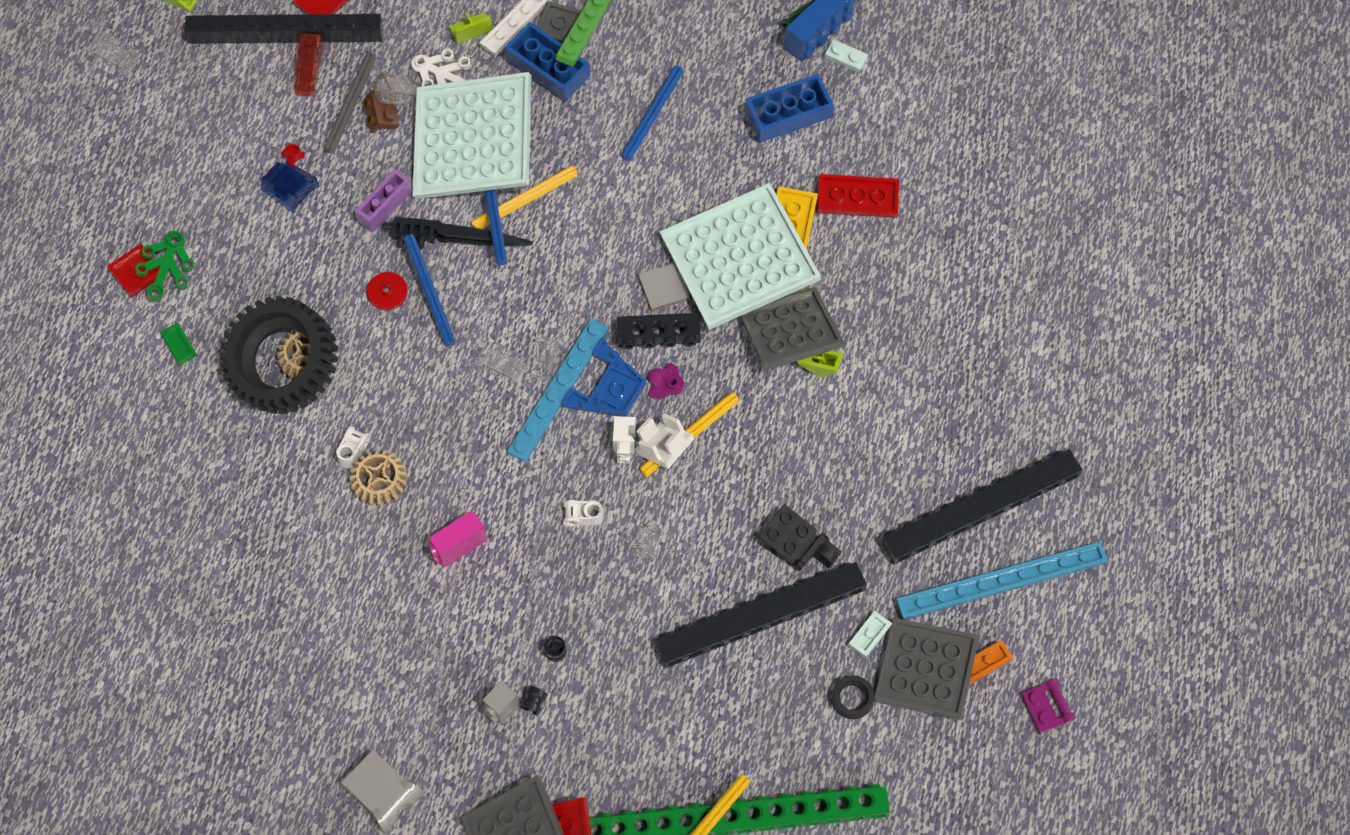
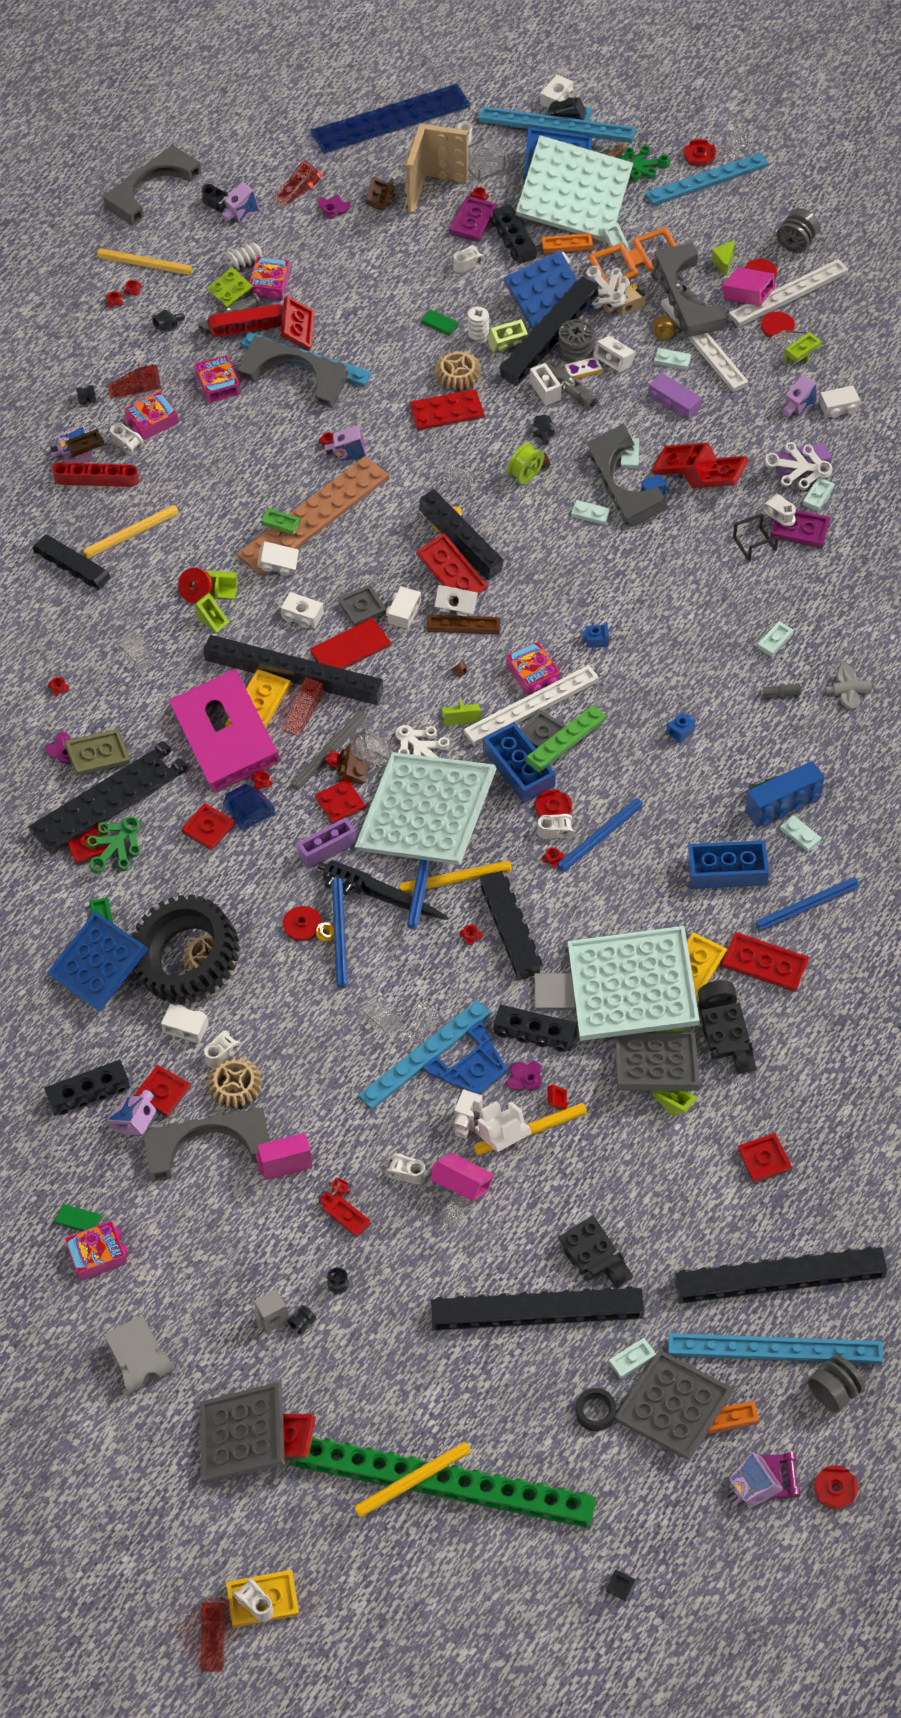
camera: 20 degrees right, 10 degrees down
(44, 108) = (58, 681): none -> red plate
(74, 174) = (58, 748): none -> magenta plate
(111, 172) = (97, 752): none -> olive plate
(139, 220) = (106, 799): none -> black hinge
(193, 394) = (97, 961): none -> blue plate
(217, 529) = (91, 1079): none -> black brick
(255, 130) = (235, 750): none -> dark pink panel
(255, 218) = (208, 826): none -> red plate
(260, 75) = (266, 694): none -> yellow plate
(269, 668) = (77, 1218): none -> green tile
(288, 543) = (133, 1114): none -> lavender torso
(300, 695) = (96, 1250): none -> brick
(305, 431) = (184, 1023): none -> white brick
(307, 508) = (166, 1088): none -> red plate
(329, 561) = (165, 1141): none -> dark grey arch
(358, 111) = (332, 759): none -> red plate
(380, 153) = (340, 801): none -> red plate
(416, 288) = (327, 927): none -> yellow plate
(522, 551) = (339, 1186): none -> red plate
(536, 577) = (344, 1213): none -> red hinge
(560, 246) = (471, 928): none -> red plate
(597, 232) = (510, 925): none -> black brick
(599, 101) = (553, 803): none -> red tile
(609, 117) = (556, 826): none -> white piece
(619, 146) = (552, 851): none -> red plate
(641, 504) = (461, 1176): none -> dark pink brick
(705, 394) = (557, 1097): none -> red plate
(826, 244) = (717, 994): none -> black tyre
(848, 281) = (728, 1036): none -> black plate
(877, 125) = (807, 903): none -> blue axle
(925, 393) = (764, 1158): none -> red plate
(1029, 721) = (753, 1482): none -> torso
(1074, 598) = (836, 1383): none -> dark grey wheel
(1113, 691) = (840, 1477): none -> red plate

